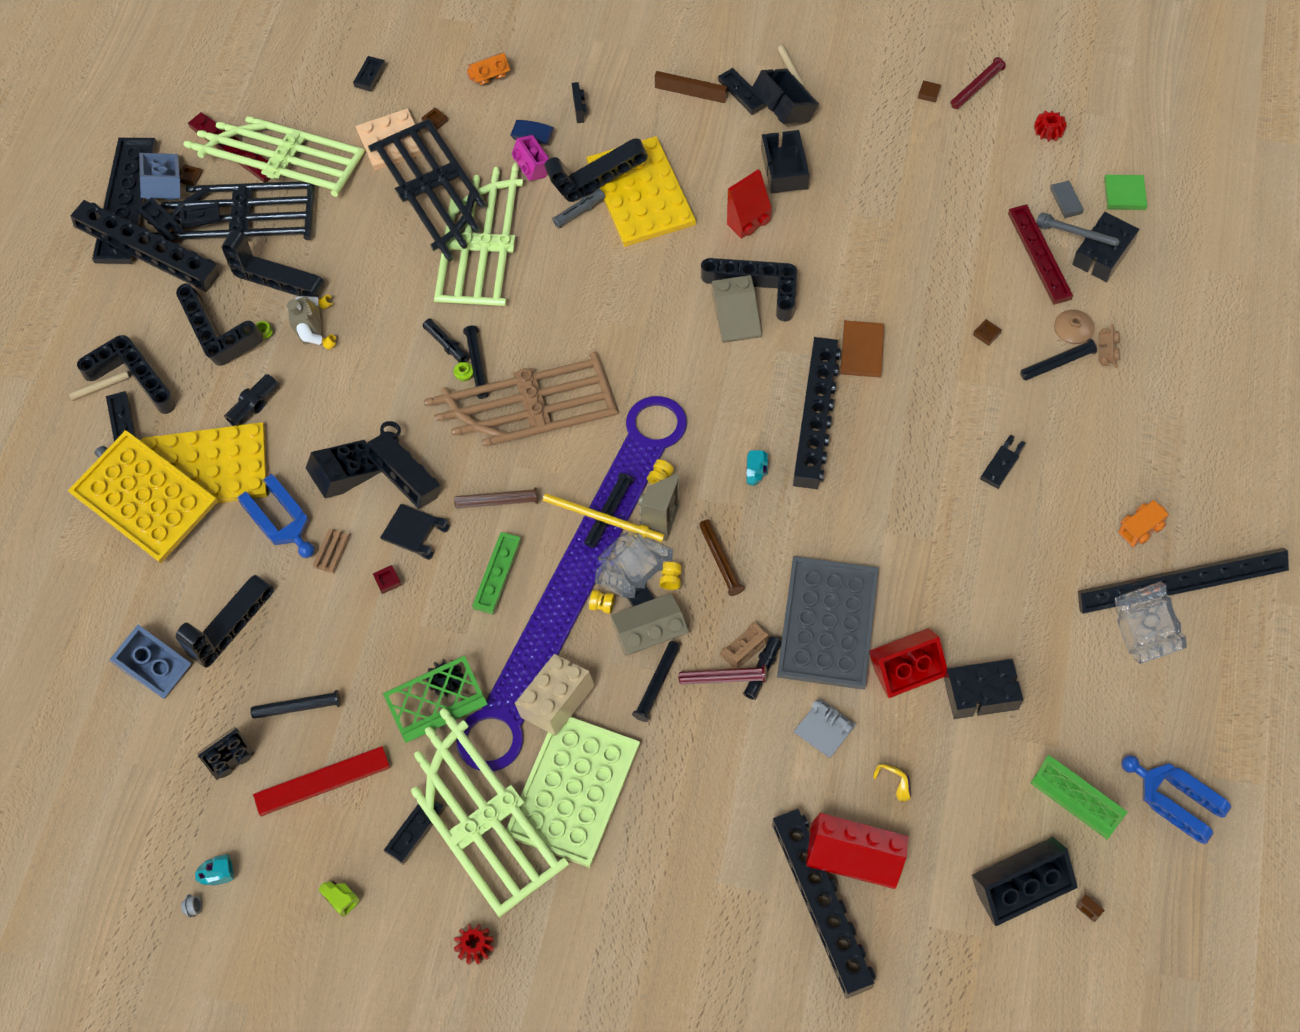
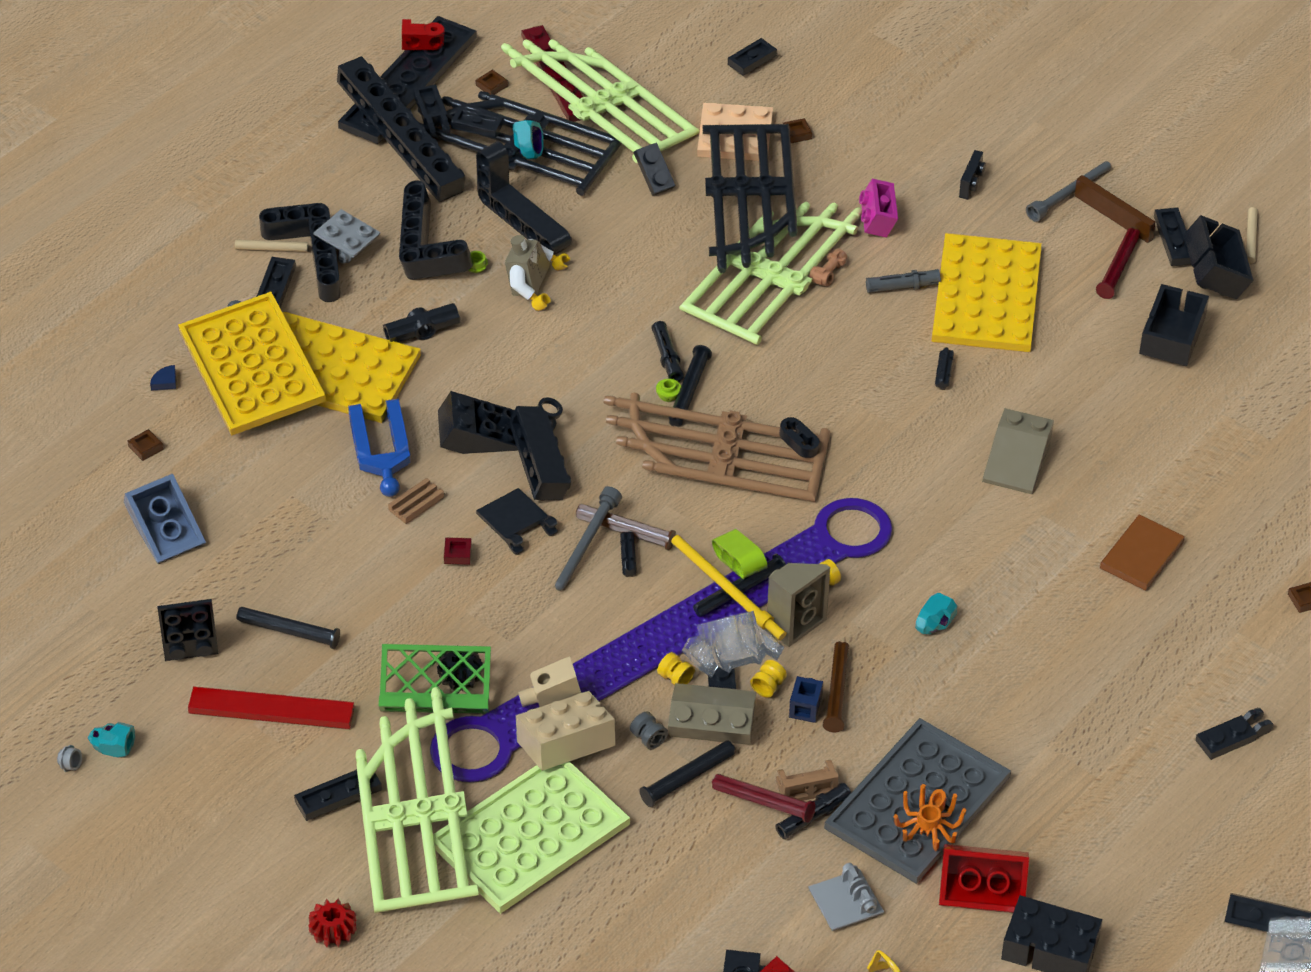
camera: 25 degrees right, 15 degrees down
(79, 538) = (164, 379): none -> dark blue tile
(96, 601) = (145, 445): none -> reddish brown tile
(117, 160) = (422, 36): none -> red leg
(154, 352) = (347, 235): none -> light grey hinge
(159, 176) = (457, 68): sand blue slope -> none
(208, 645) = (238, 530): black beam -> none
(248, 213) = (528, 138): none -> teal rock
(339, 897) = (222, 818): lime rock -> none
(352, 196) = (654, 169): none -> black plate
(476, 484) = (609, 499): none -> dark grey piece
(489, 67) = (892, 100): orange brick -> none
(496, 573) = (579, 595): bright green plate -> none
(511, 520) = (628, 553): none -> black axle
(521, 229) = (824, 275): none -> nougat bar
(525, 664) = (551, 684): none -> tan torso
(526, 128) = (906, 187): dark blue slope -> none
(581, 369) = (797, 438): none -> black beam
(594, 485) = (739, 553): none -> lime beam
(597, 173) = (942, 250): black beam -> none
(610, 661) = (646, 728): none -> dark grey wheel
(639, 110) = (1038, 209): none -> dark grey piece
(646, 265) = (944, 368): none -> black axle
(711, 585) = (805, 699): none -> dark blue brick
(720, 151) = (1106, 288): none -> dark red axle
(748, 205) = (1097, 347): red slope -> none
(763, 275) = (1089, 438): black beam -> none
(805, 475) = (1042, 591): black brick -> none
(850, 635) = (930, 816): none -> orange animal

